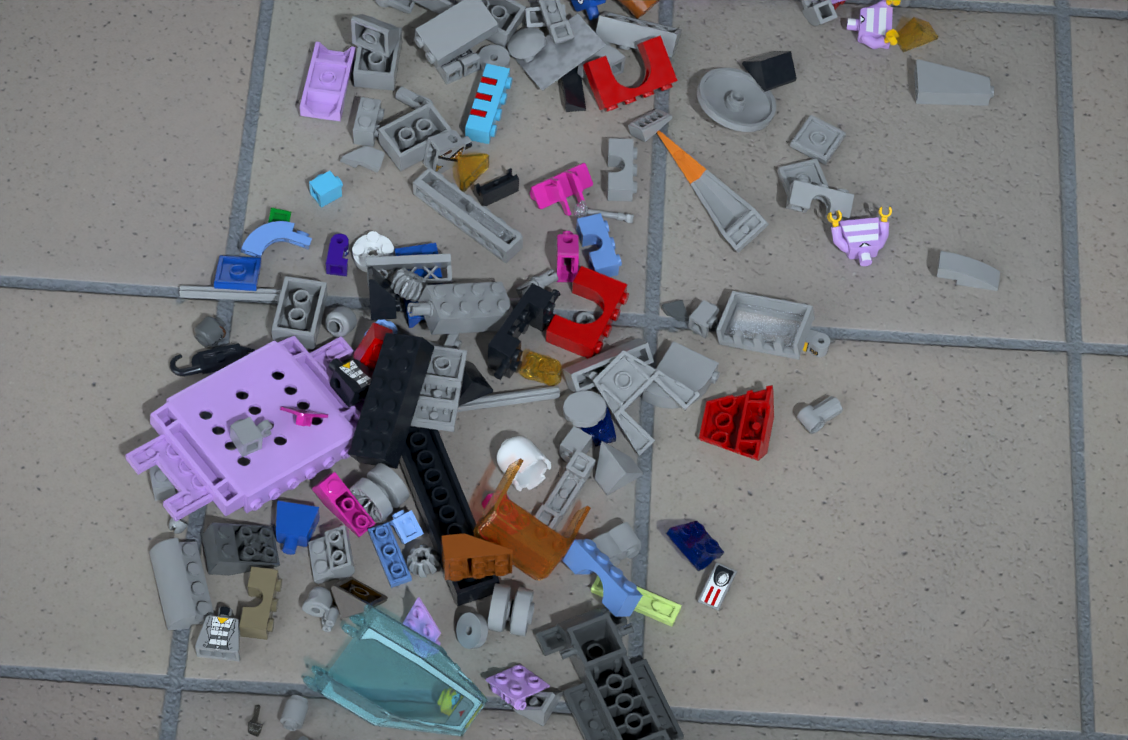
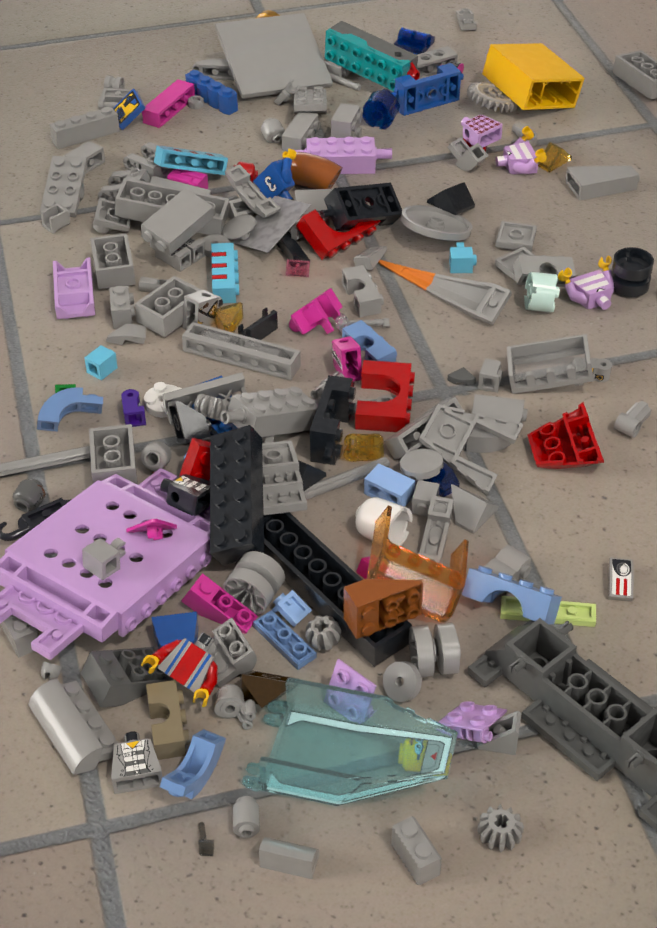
camera: 15 degrees left, 15 degrees down
(237, 273) = (39, 444): blue tile -> none
(269, 655) = (196, 766): none -> medium blue arch
(293, 560) = (188, 665): none -> torso
(374, 34) = (105, 236): light grey slope -> none
(547, 422) = (389, 485): none -> light blue brick
(567, 119) = (297, 268): none -> clear pink piece
(644, 60) = (348, 205): none -> black brick
(695, 544) = (574, 545): clear blue plate -> none
(744, 155) = (462, 259): none -> medium azure brick
(802, 229) = (541, 292): none -> light aqua brick
(910, 230) = (632, 271): none -> black wheel

